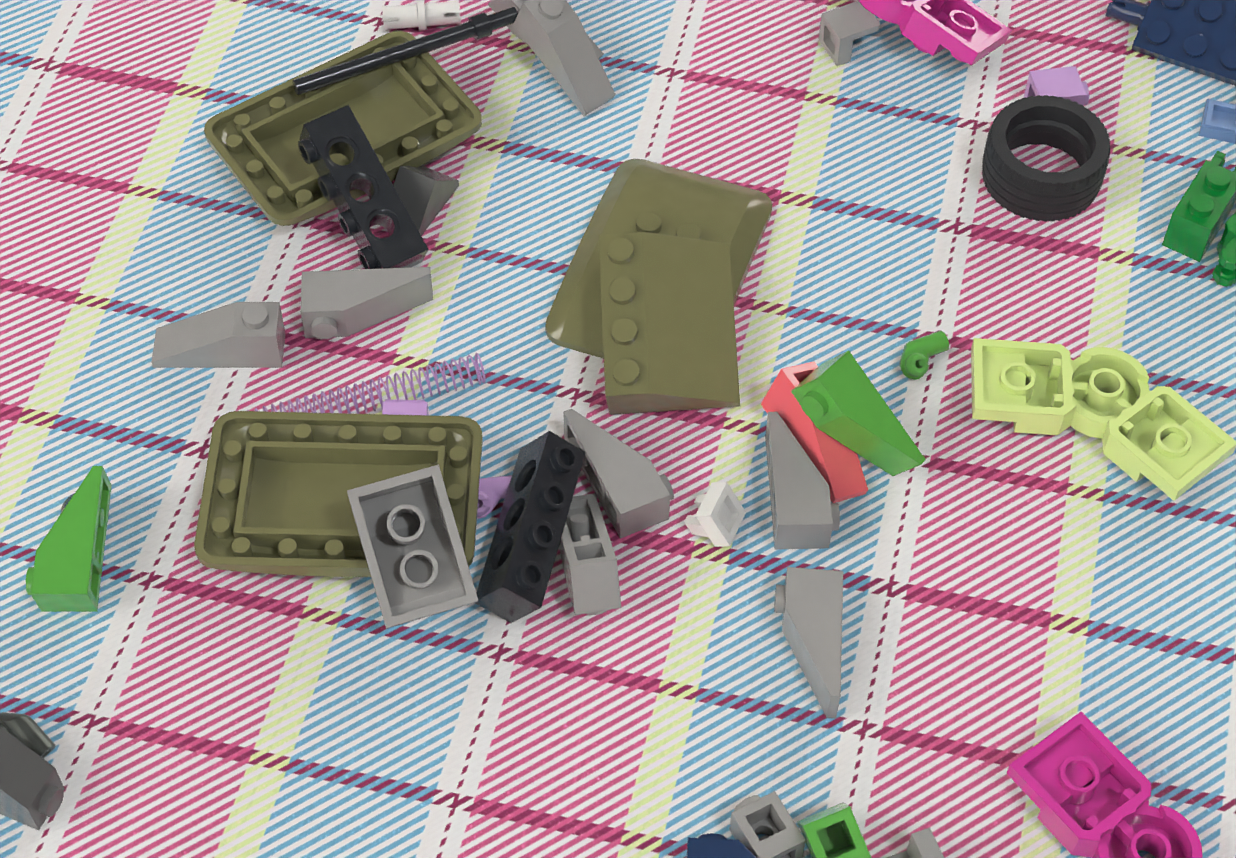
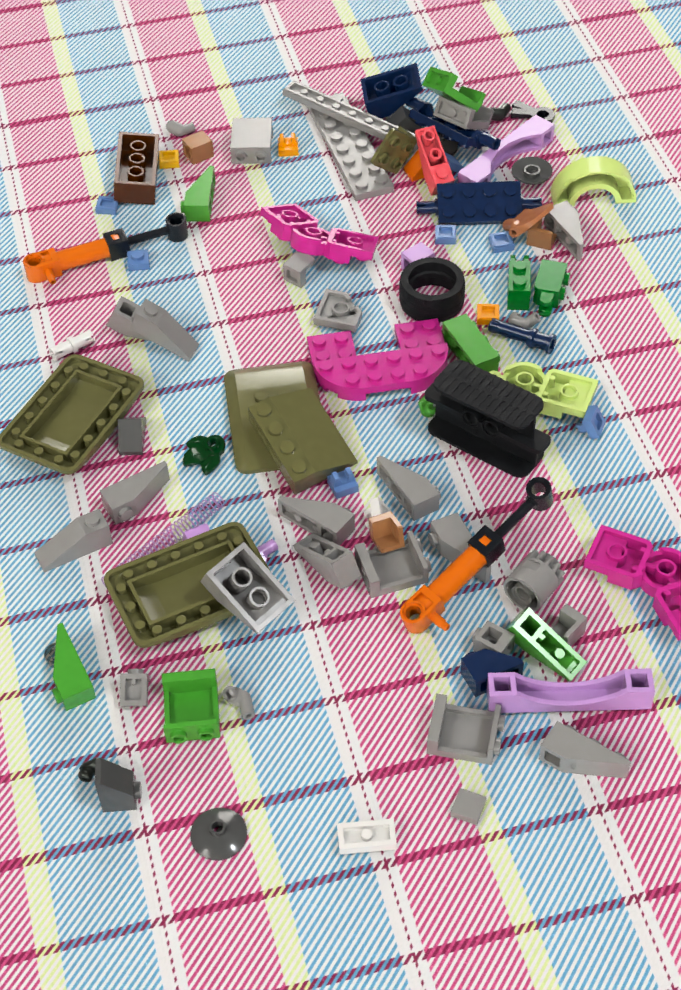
camera: 25 degrees left, 5 degrees down
(154, 625) = (134, 688): none -> light grey bracket
(220, 701) = (191, 706): none -> bright green panel
(304, 725) = (241, 699): none -> light grey arm
(342, 134) = (104, 427): black brick -> none
(477, 27) = (112, 337): black bar -> none
(509, 279) = (202, 453): none -> dark green plate
(530, 527) = (295, 558): black brick -> none
(685, 613) = (394, 569): none -> light grey panel
(695, 430) = (342, 483): none -> medium blue tile
(705, 550) = (386, 532): none -> medium nougat panel
(833, 460) = (401, 450): coral slope -> none
(837, 662) = (483, 550): none -> orange piece
(853, 412) = (421, 440): bright green slope -> none
(867, 131) = (337, 311): none -> light grey plate
(903, 756) = (533, 580): none -> light grey gear
(934, 281) = (352, 376): none -> dark pink plate
(993, 427) = (487, 418): none -> black piece
(1054, 284) = (469, 343): none -> bright green brick
(1121, 239) = (486, 312): none -> light orange tile
(1133, 70) = (445, 234): none -> medium blue tile
(1169, 313) = (532, 337): none -> dark blue pin
(1170, 281) = (528, 322): none -> light grey arm
(1185, 514) = (592, 422): none -> medium blue tile

